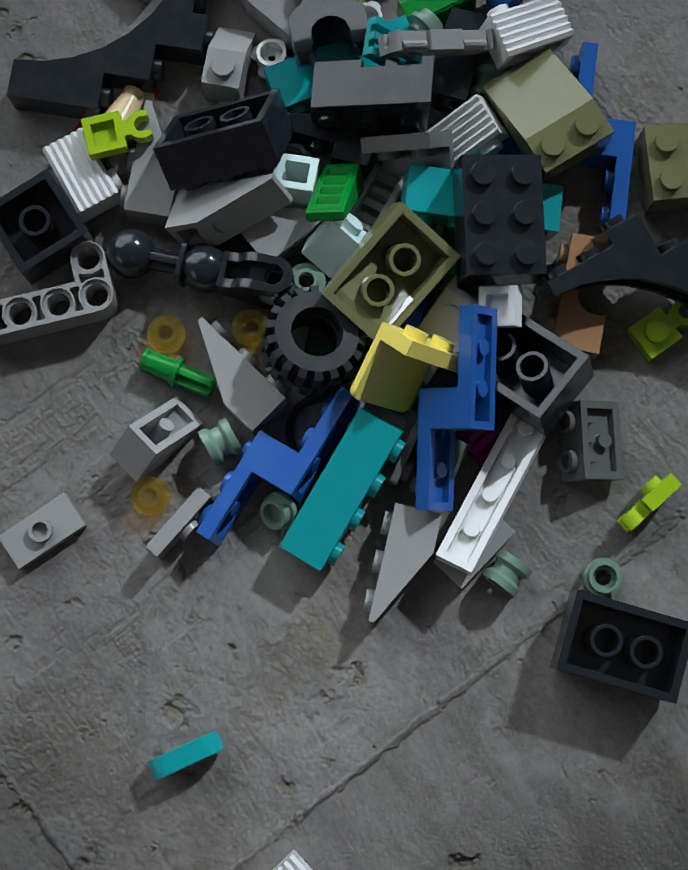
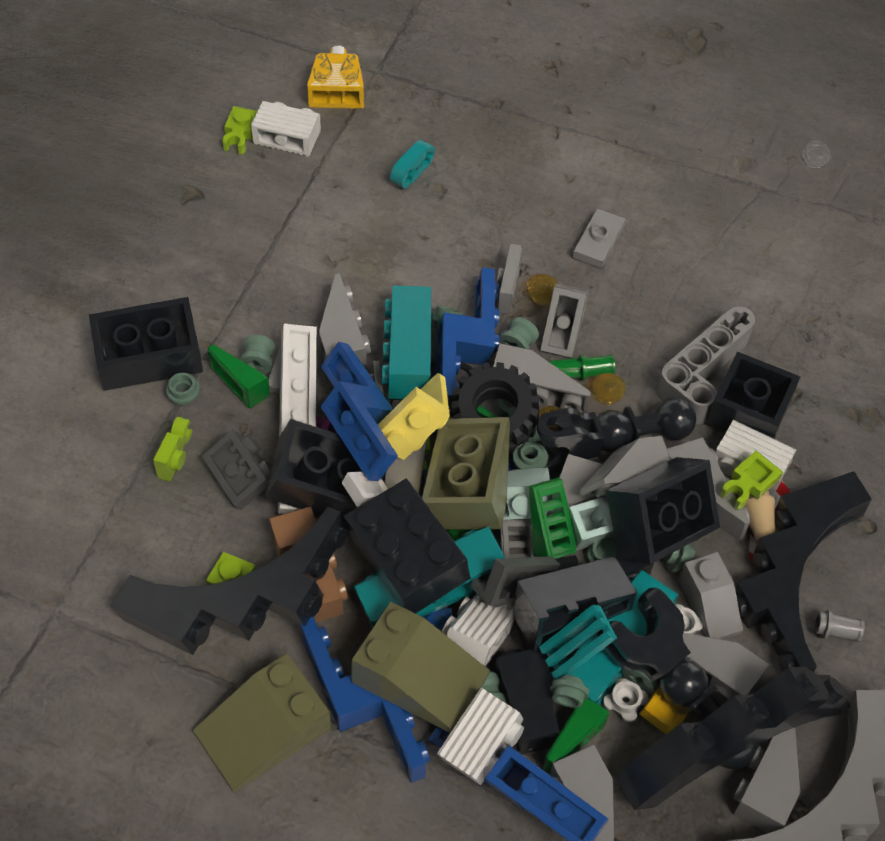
camera: 145 degrees right, 25 degrees down
(435, 42) = (548, 657): light grey piece -> none
(539, 549) = (240, 378): none -> green slope

